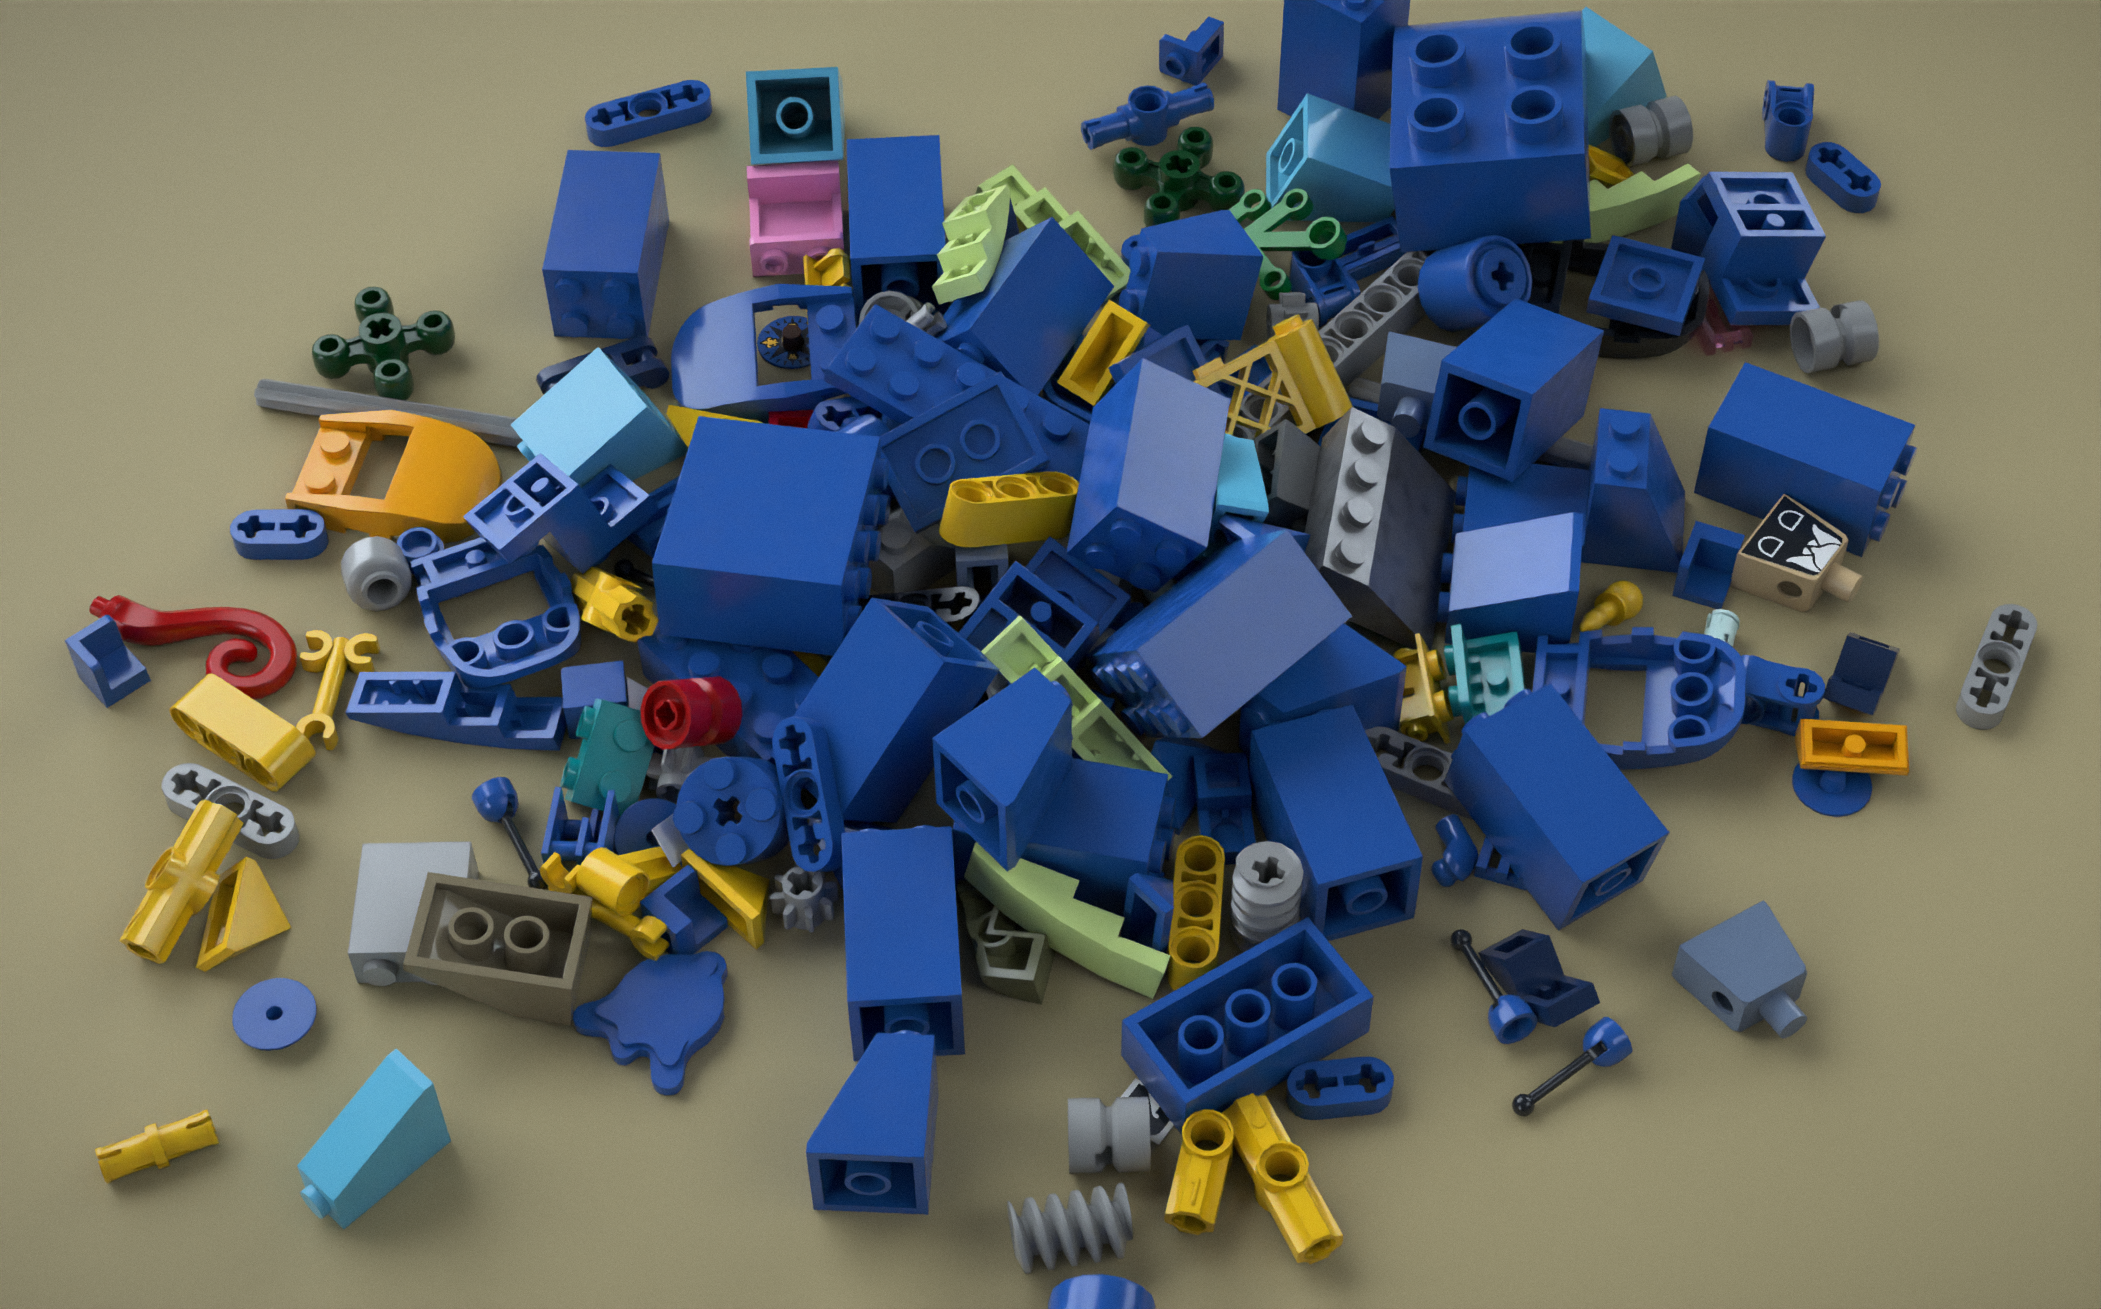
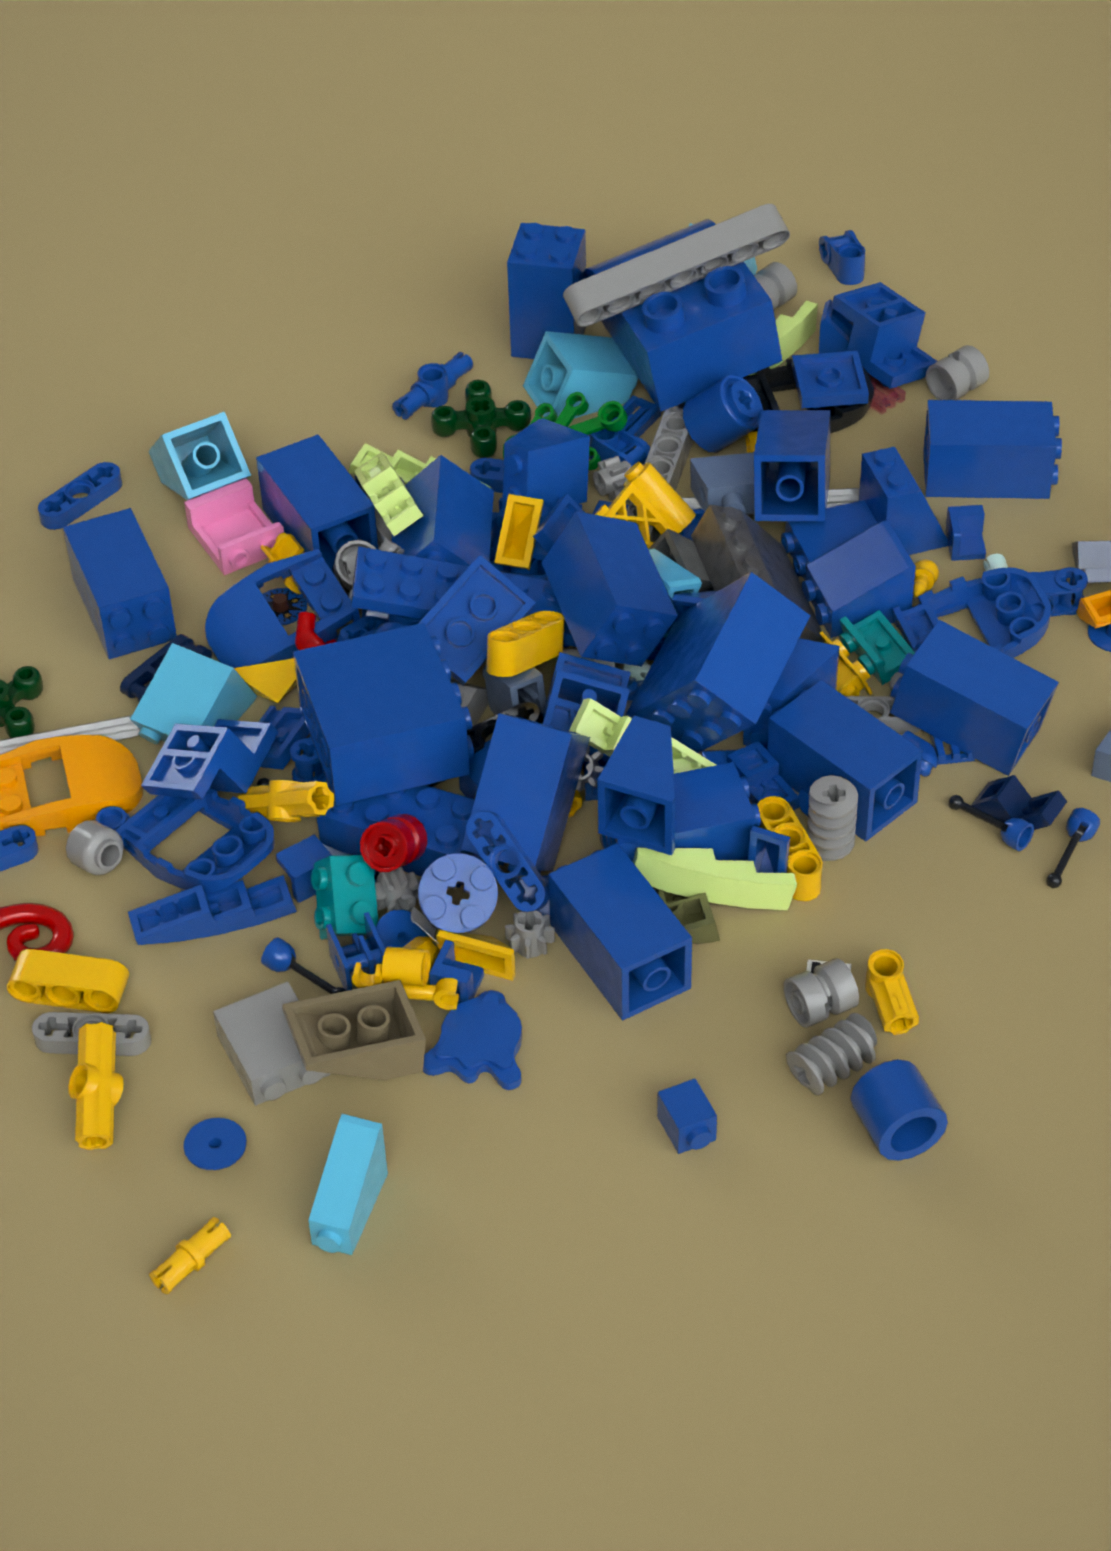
camera: 25 degrees left, 5 degrees down
(240, 915) = (145, 1094): yellow slope -> none
(333, 661) = (102, 910): yellow bar -> none
(769, 398) = (305, 635): none -> red arm
(838, 1230) = (687, 1116): none -> blue brick
(879, 1131) = (688, 1037): blue slope -> none
(1196, 55) = (437, 340): blue bracket -> none
(1246, 1023) = (865, 895): blue brick -> none
(1294, 1203) = (944, 977): yellow piece -> none
(1339, 1088) = (936, 910): blue beam -> none
(1483, 62) = (676, 264): none -> light grey beam
(1795, 559) = (1017, 511): torso -> none
(1843, 177) = (904, 281): blue beam -> none

